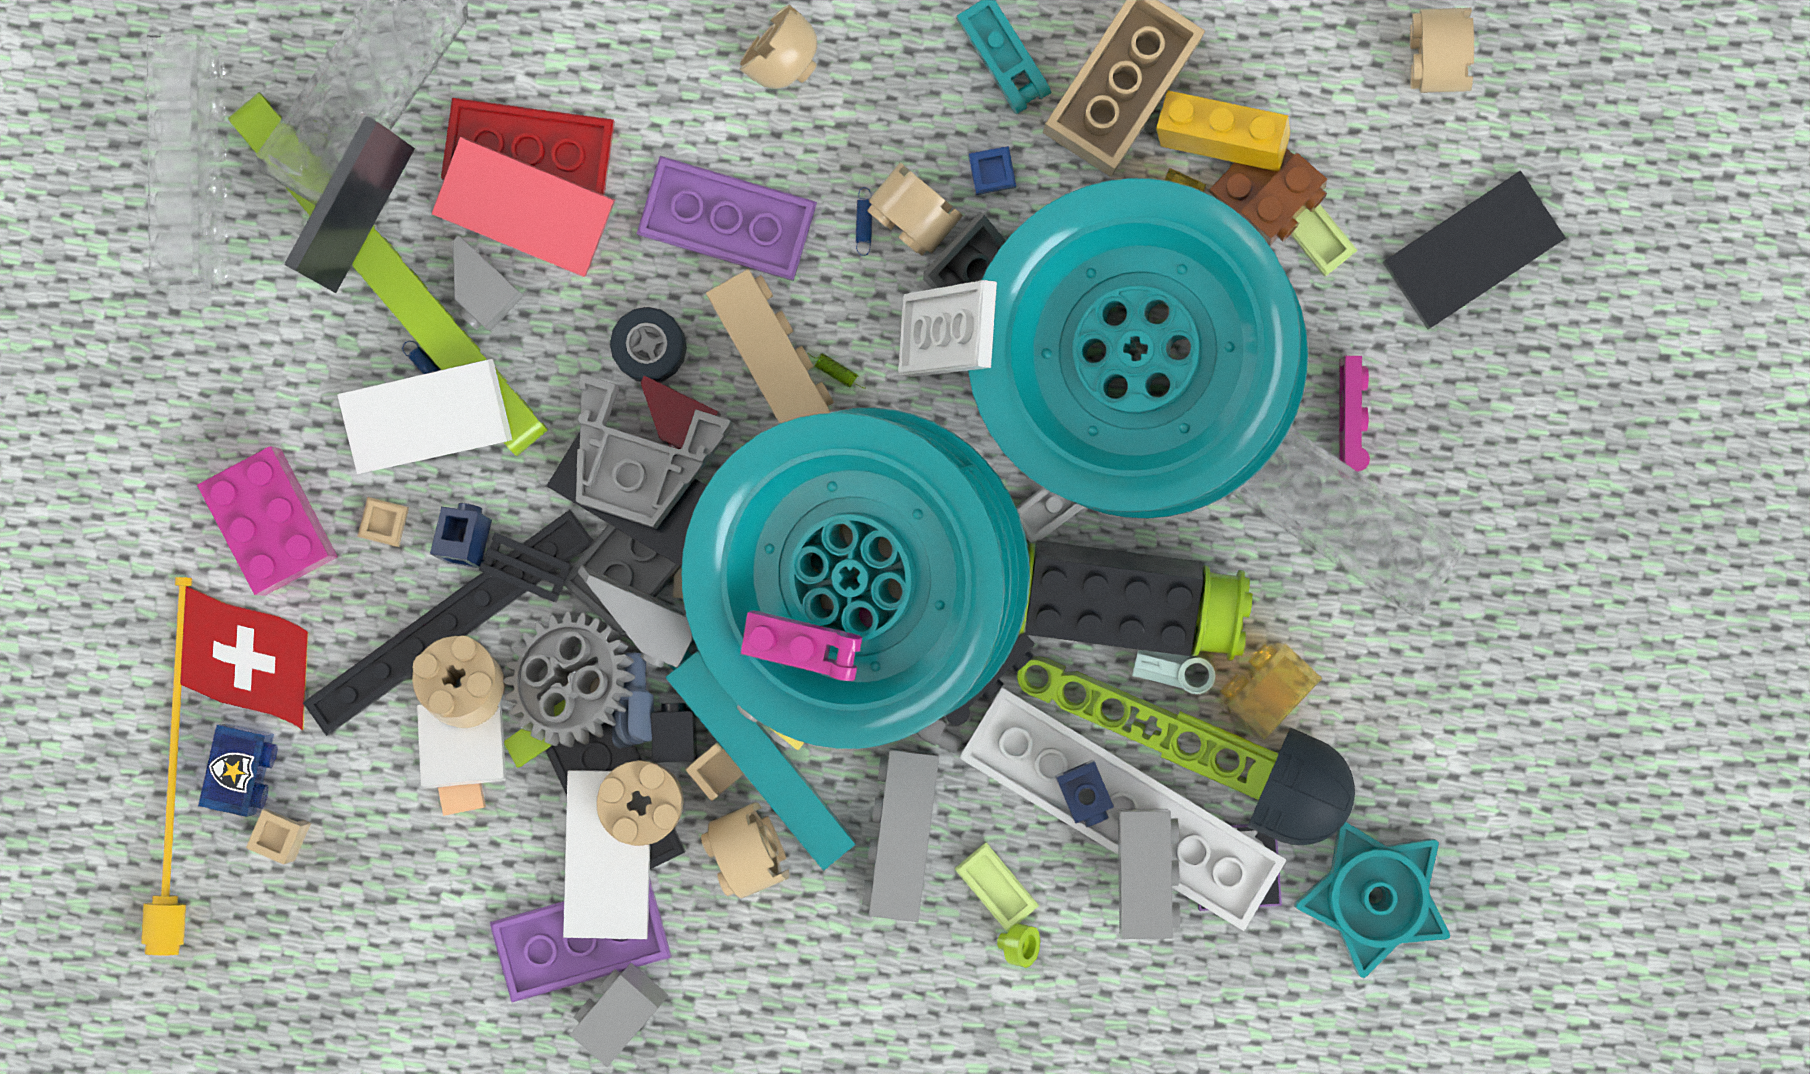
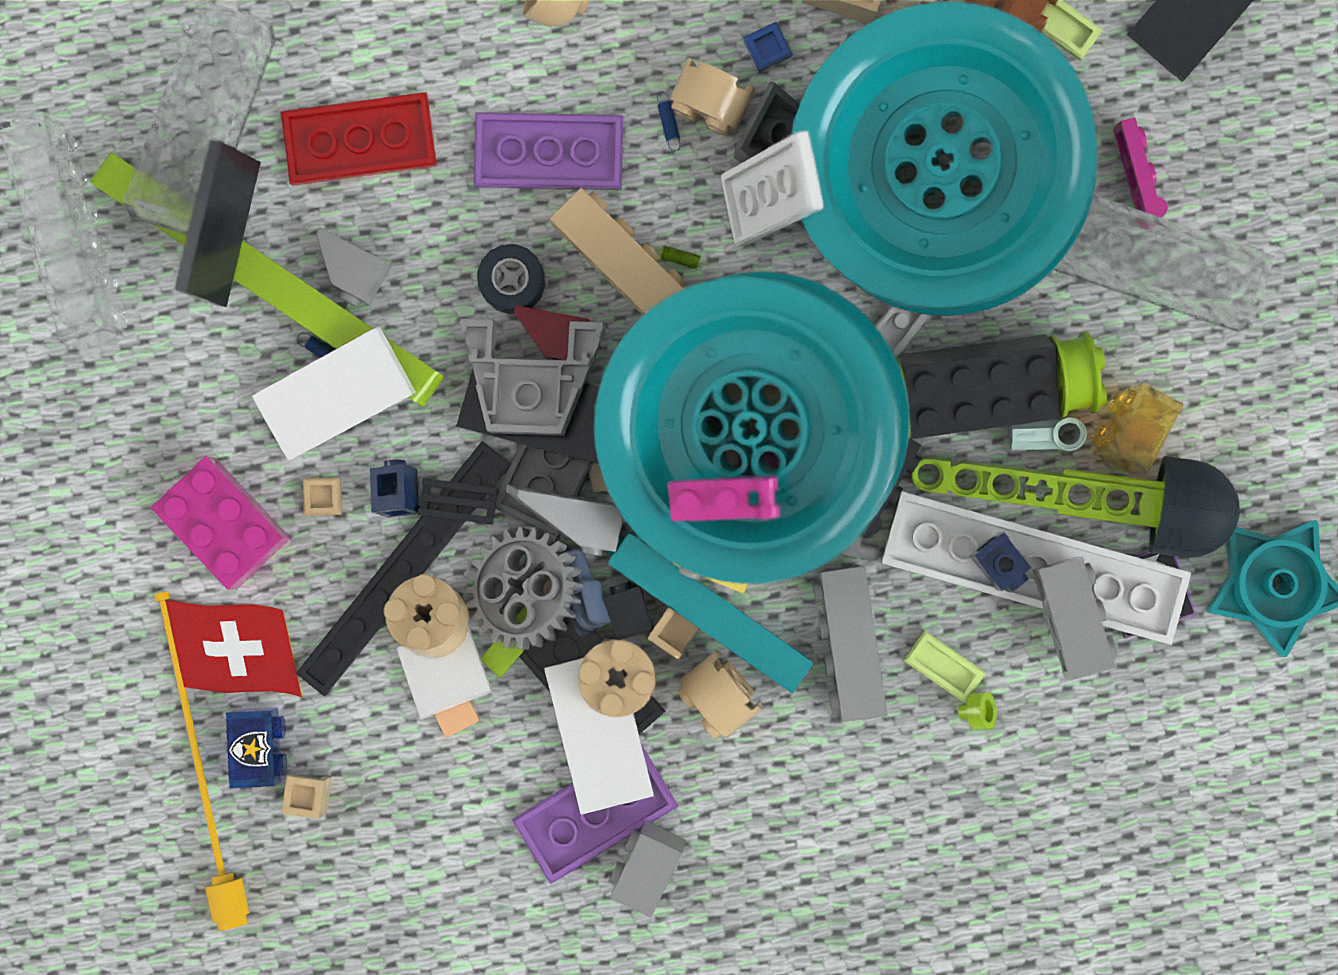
camera: 20 degrees left, 0 degrees up
(523, 206) = (368, 188): coral tile -> none

